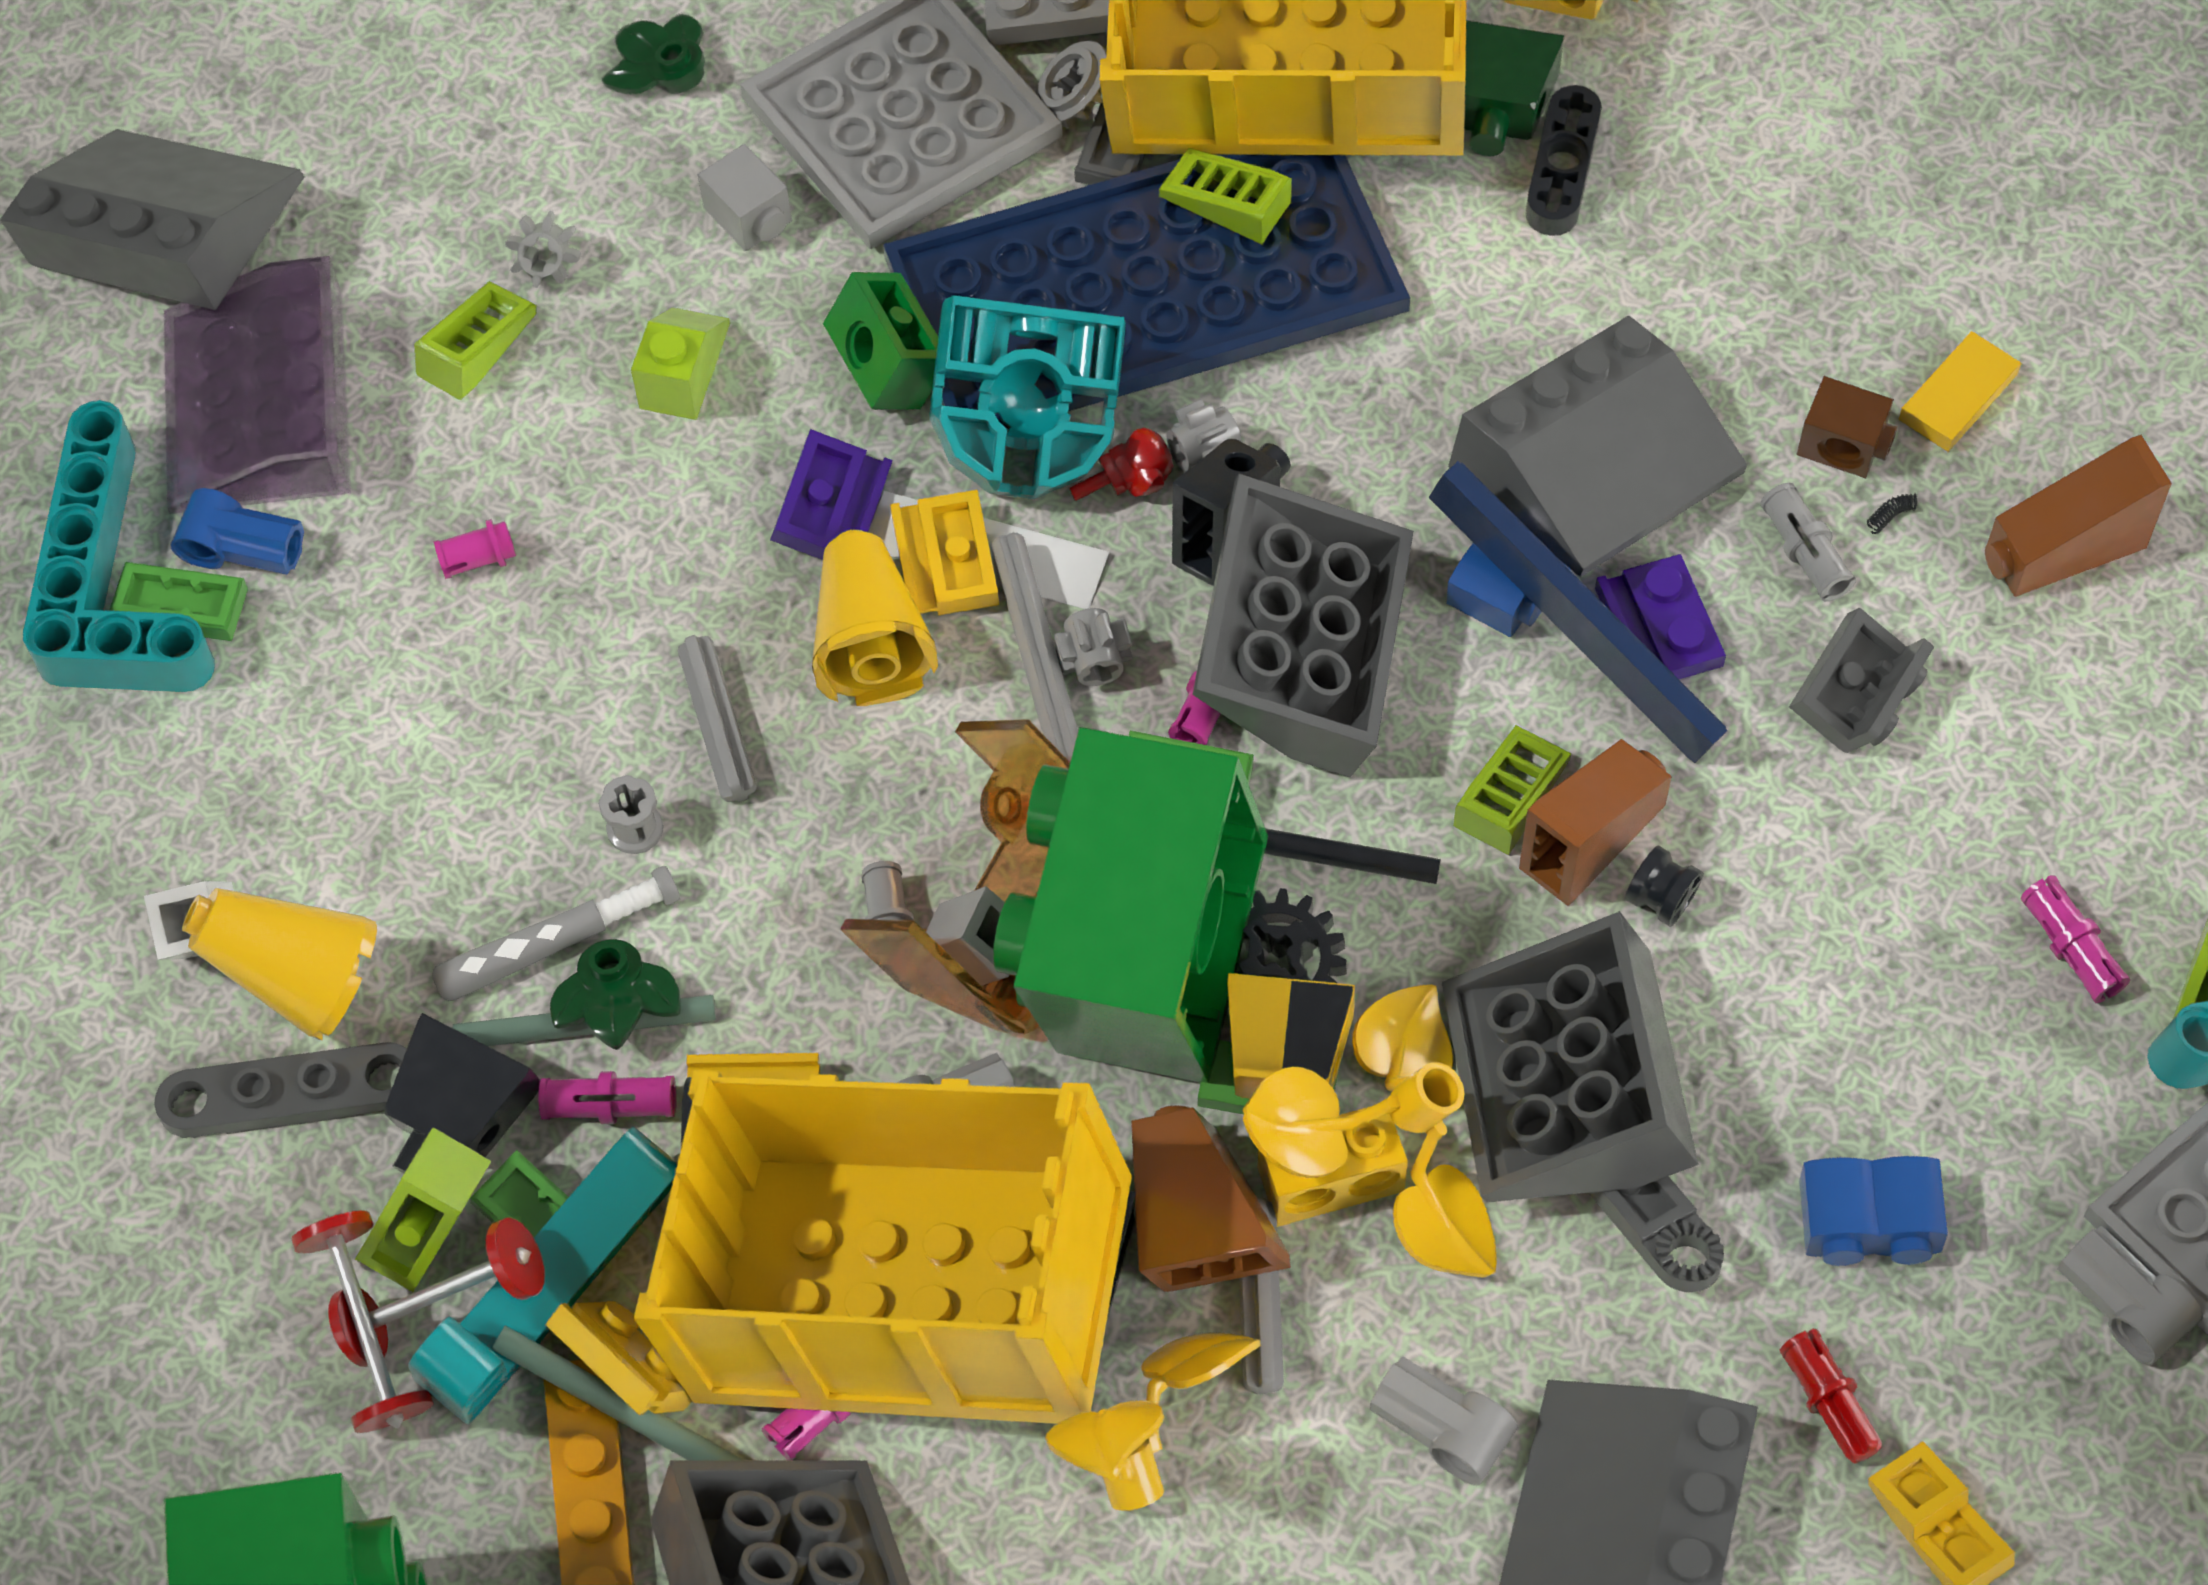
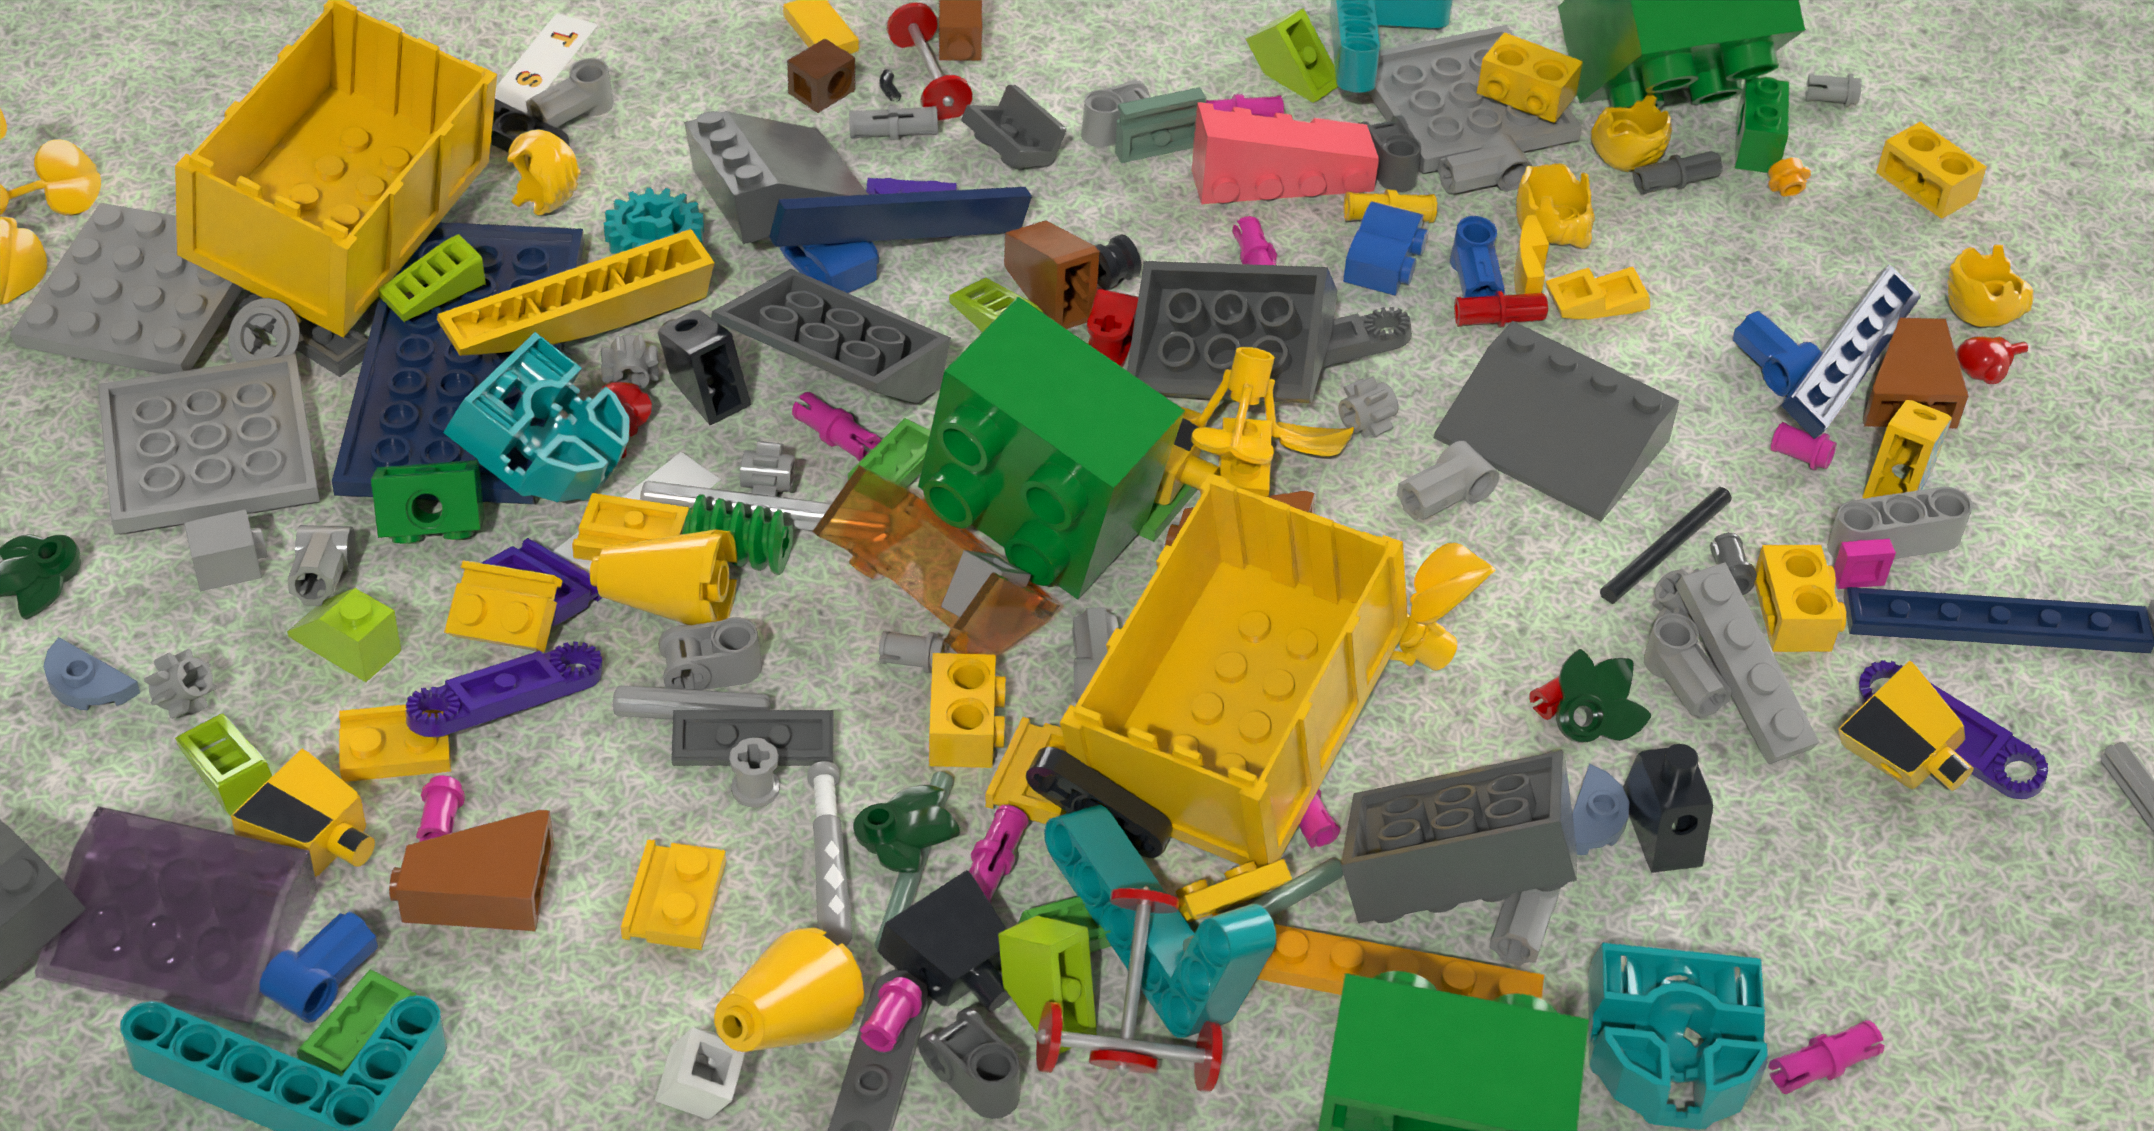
camera: 75 degrees left, 15 degrees down
(317, 1166) = (975, 1064): none -> dark grey piece
(326, 1068) = (897, 1004): none -> dark pink pin
(399, 623) = (478, 875): none -> dark orange slope
(415, 437) = (309, 811): none -> yellow torso
(451, 808) = (674, 894): none -> yellow plate
(536, 165) = (84, 680): none -> sand blue plate
(560, 469) = (380, 745): none -> yellow plate
(656, 533) = (503, 689): none -> dark purple plate
(690, 796) = (710, 735): none -> dark grey tile
(762, 479) = (503, 606): none -> yellow plate
(777, 285) = (320, 560): none -> light grey piece
(784, 698) = (715, 654): none -> light grey piece
(800, 973) = (963, 710): none -> yellow brick
(975, 656) = (754, 538): none -> green piece
(1253, 344) = (585, 298): none -> yellow slope
(1455, 364) = (649, 219): none -> teal gear
(1482, 214) = (546, 170): none -> yellow hair
(1530, 917) = (1112, 324): none -> red piece
(1530, 1278) = (1368, 407): none -> light grey gear
(1664, 191) = (584, 92): none -> light grey piece
(1713, 131) = (543, 60): none -> white sticker
(1780, 1057) = (1252, 242): none -> dark pink pin
(1881, 579) = (914, 26): none -> red axle
(1900, 1340) = (1476, 258): none -> blue piece
(1956, 1400) = (1530, 258): none -> yellow slope
(1960, 848) = (1157, 125): none -> sand green plate
(1972, 1193) = (1357, 203): none -> yellow pin
(1976, 1019) = (1278, 157): none -> coral wedge
(1978, 795) = (1102, 111): none -> light grey piece
(2077, 1410) = (1558, 202): none -> yellow hair
(2096, 1151) = (1397, 154): none -> dark grey piece

